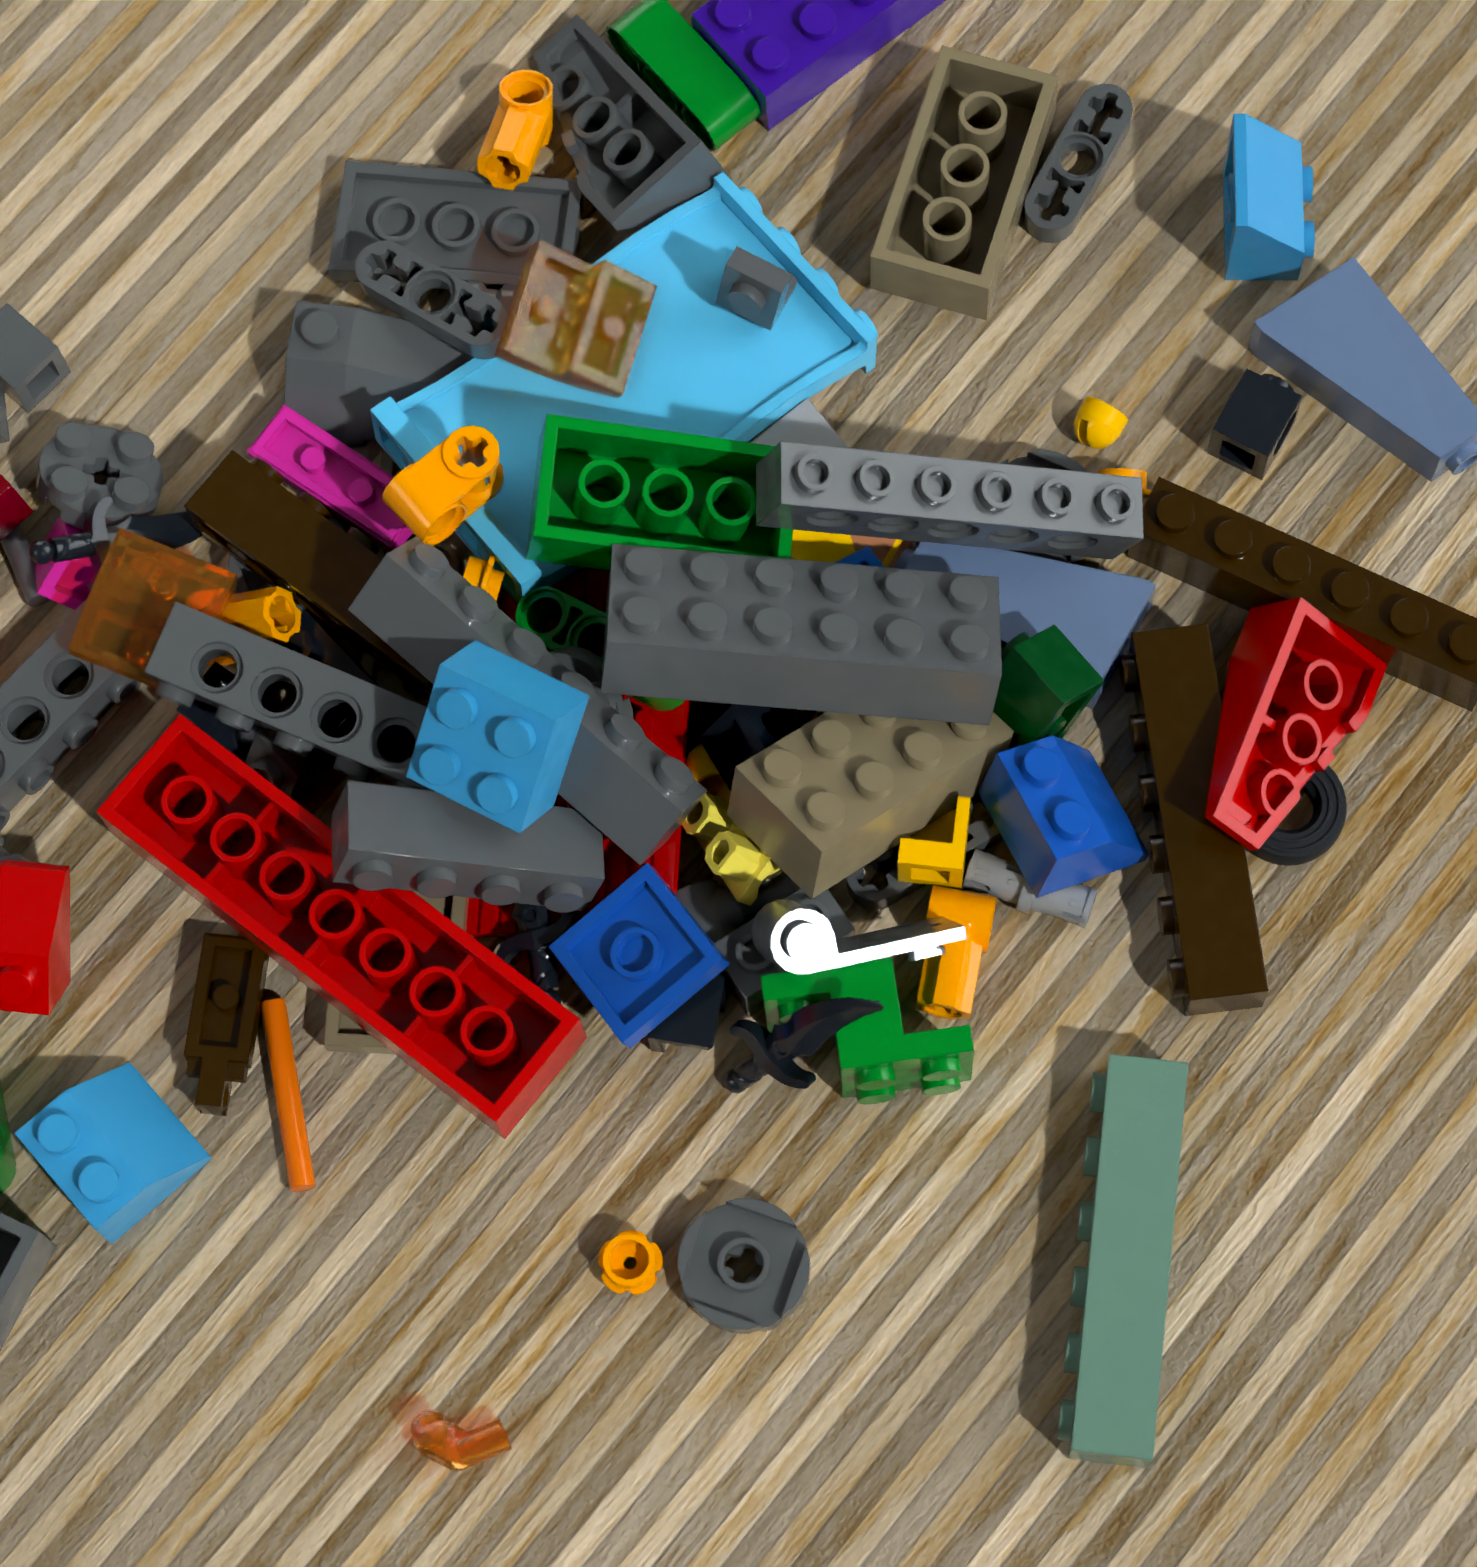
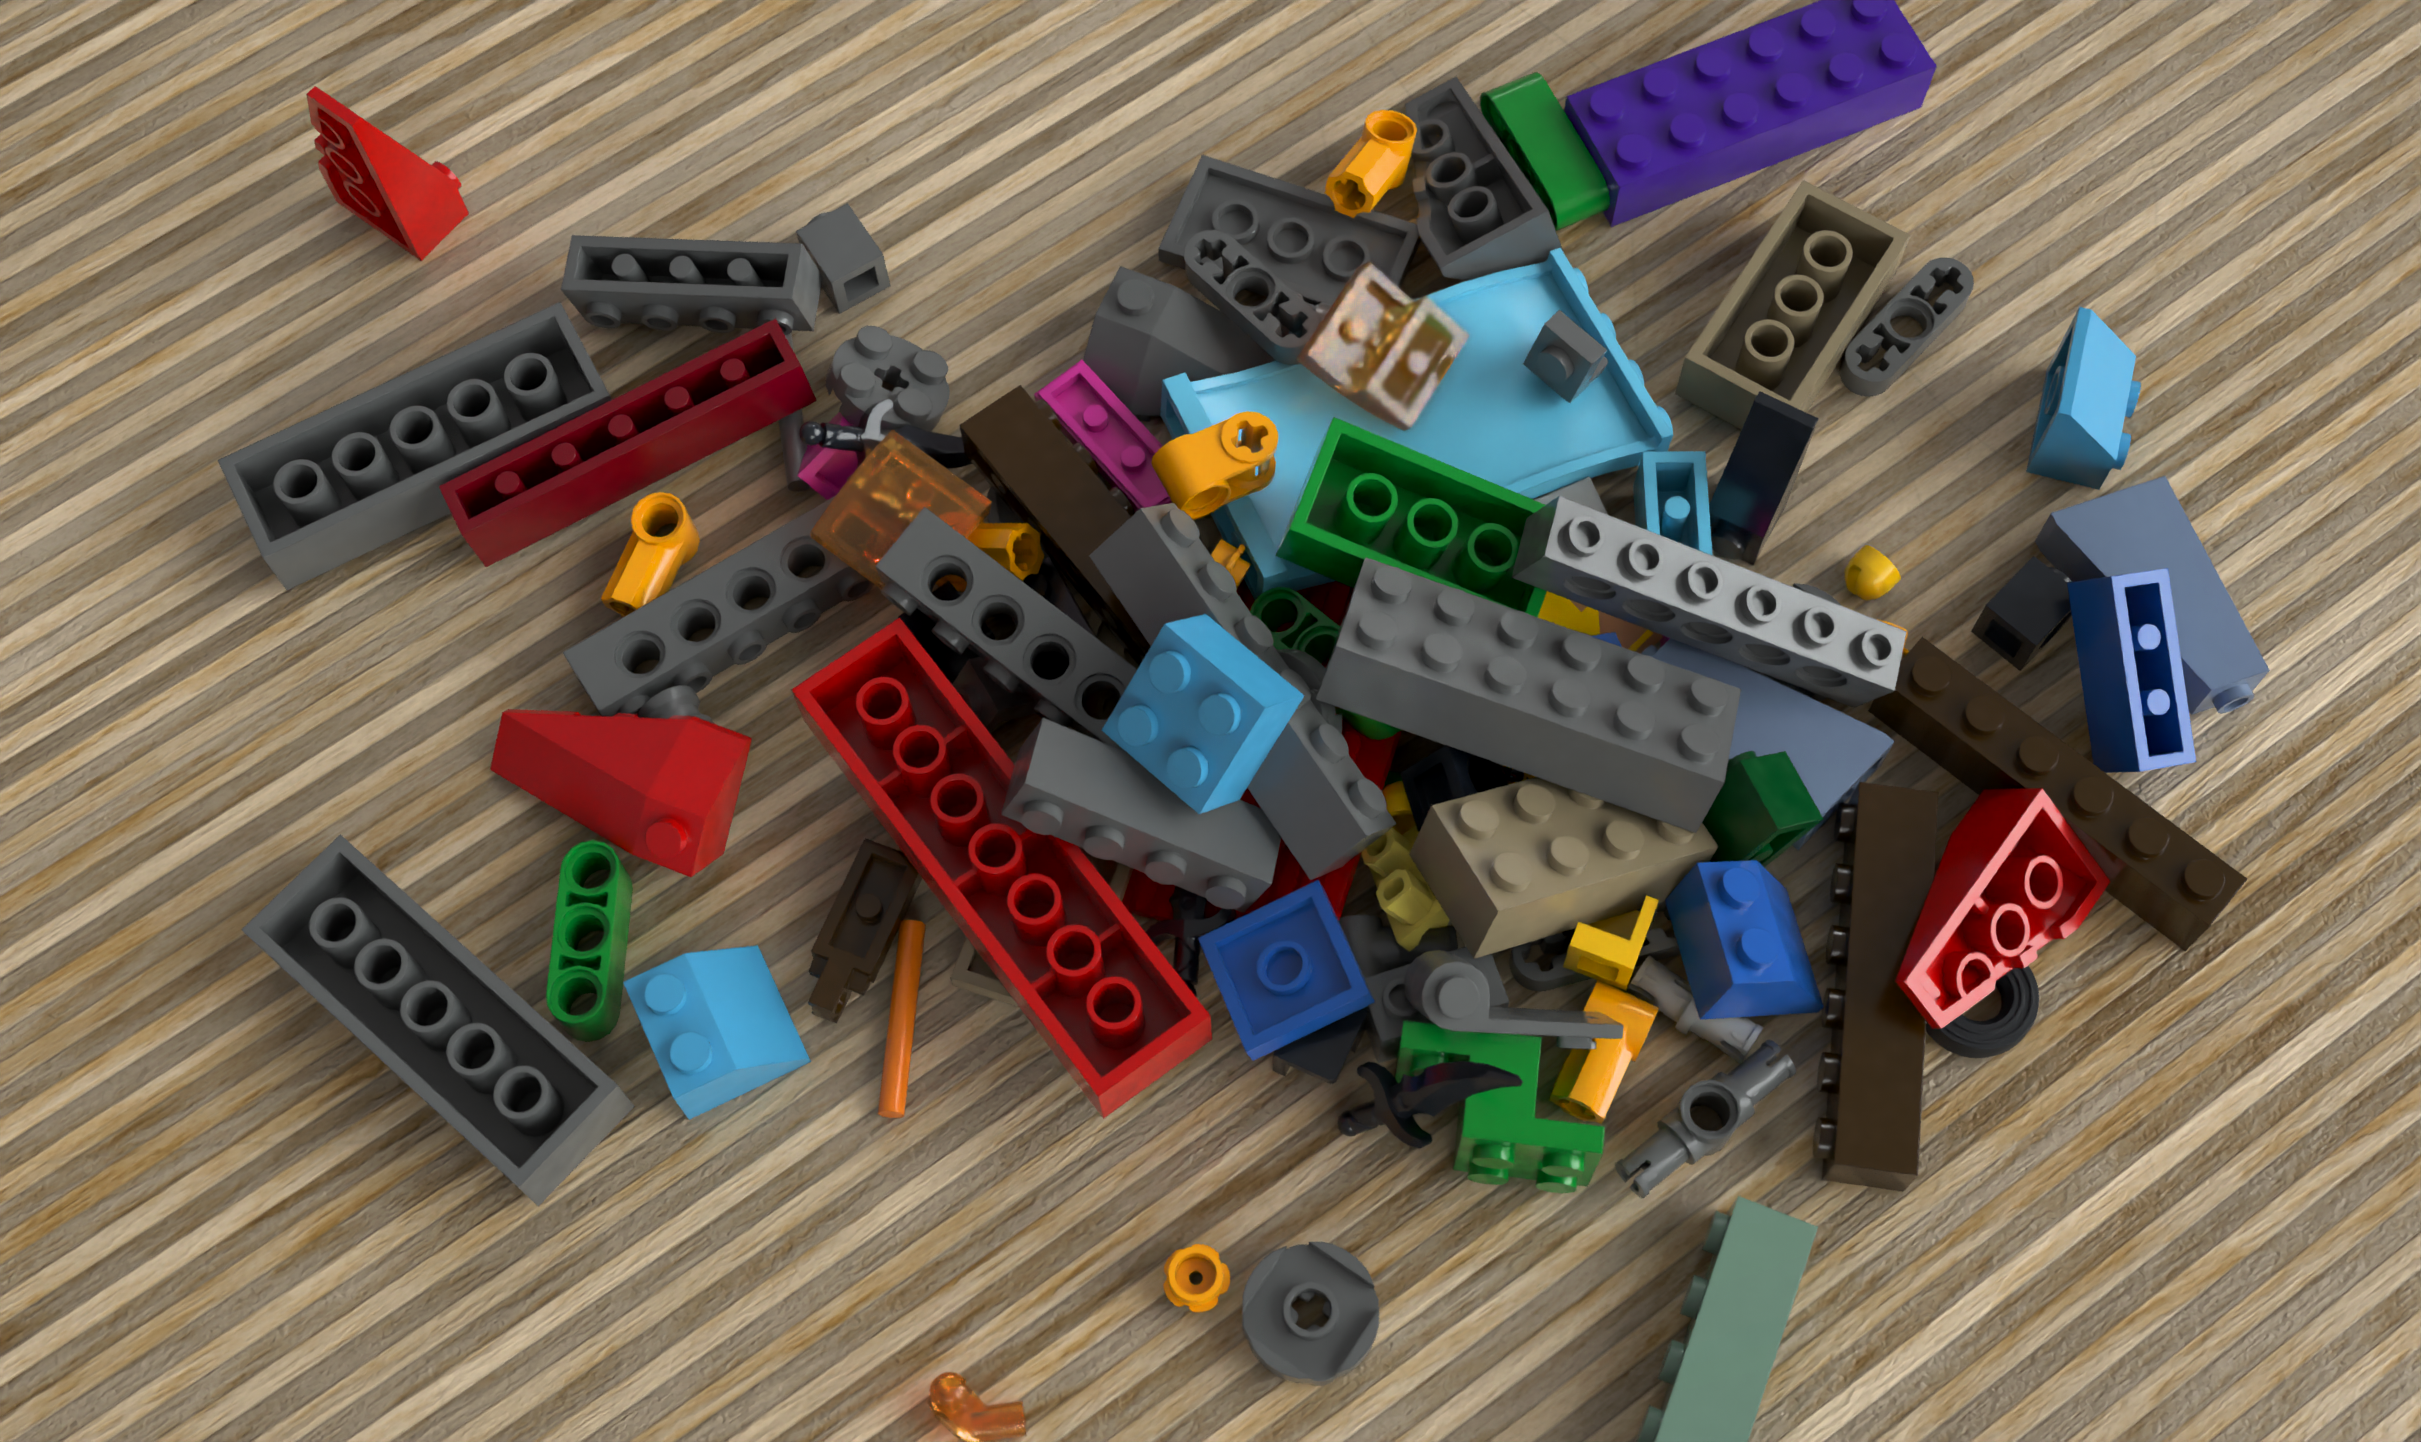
camera: 10 degrees right, 5 degrees down
(894, 405) = (1674, 497): none -> medium azure brick
(967, 363) = (1759, 477): none -> black slope
(1049, 1016) = (1683, 1141): none -> dark grey pin
(1361, 460) = (2131, 672): none -> blue brick

